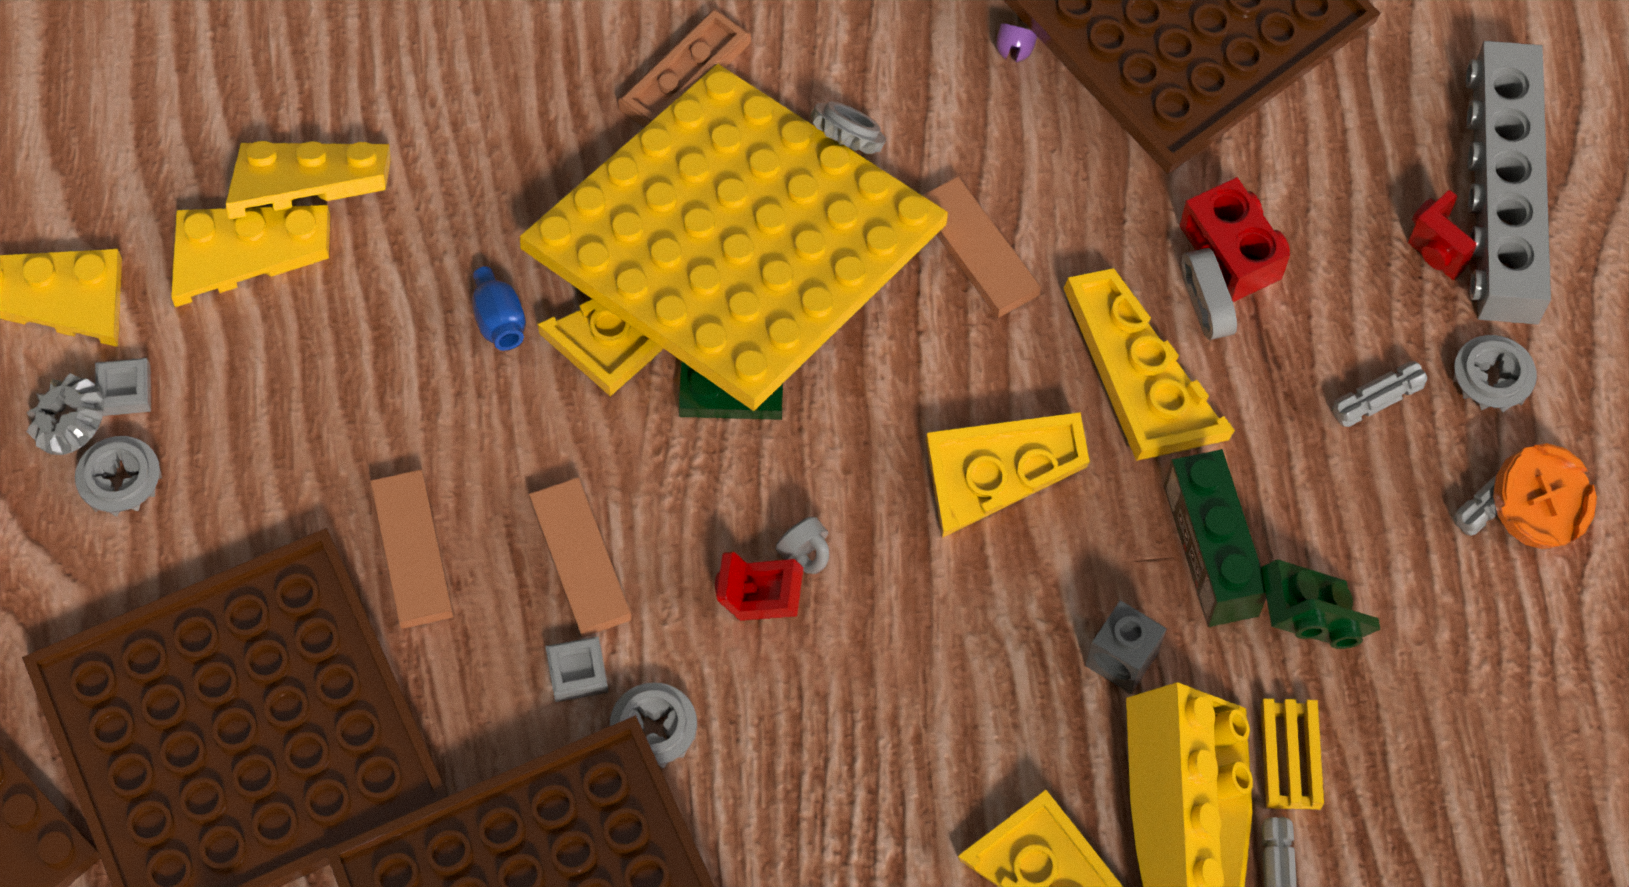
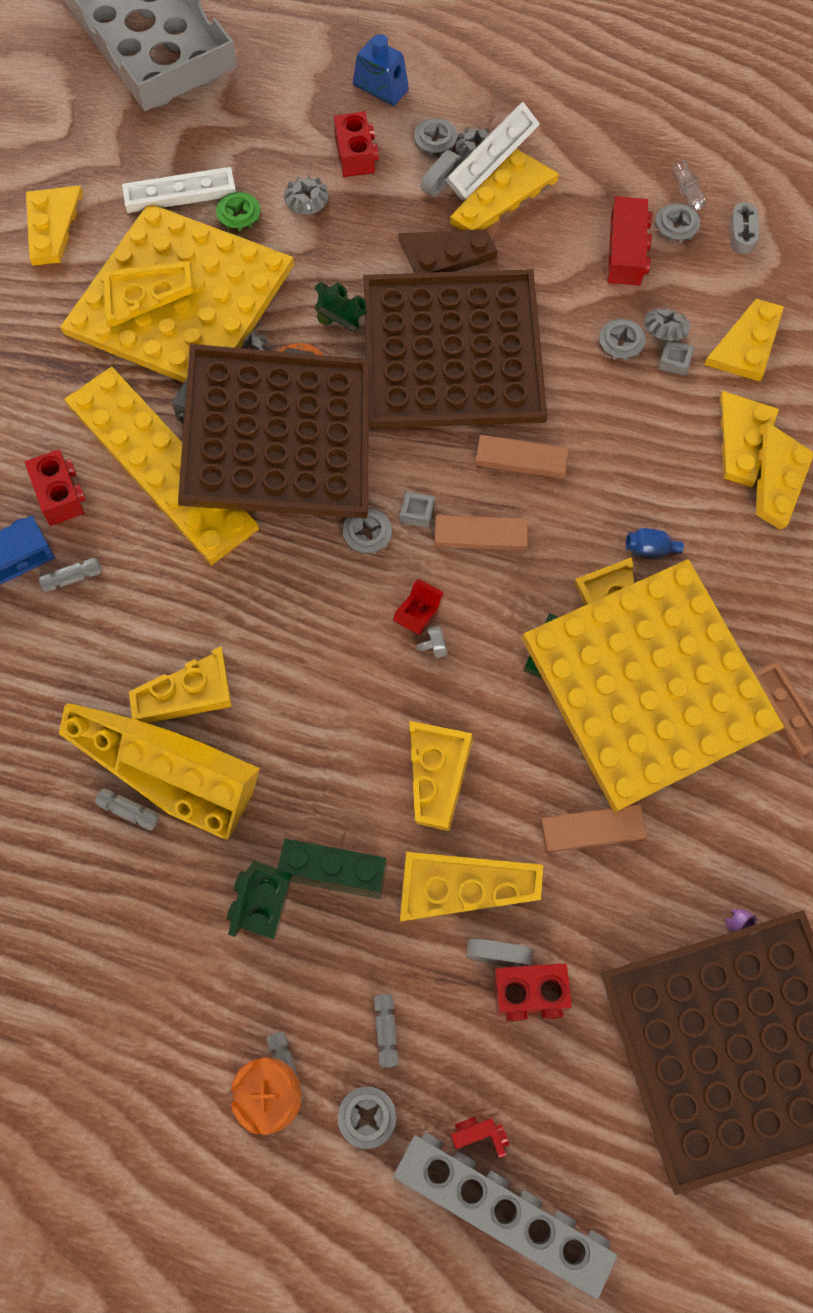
camera: 115 degrees right, 5 degrees up
(848, 127) = (710, 791): light grey gear -> none
(1125, 647) = (290, 783): dark grey brick -> none
(1290, 711) = (163, 839): yellow tile -> none

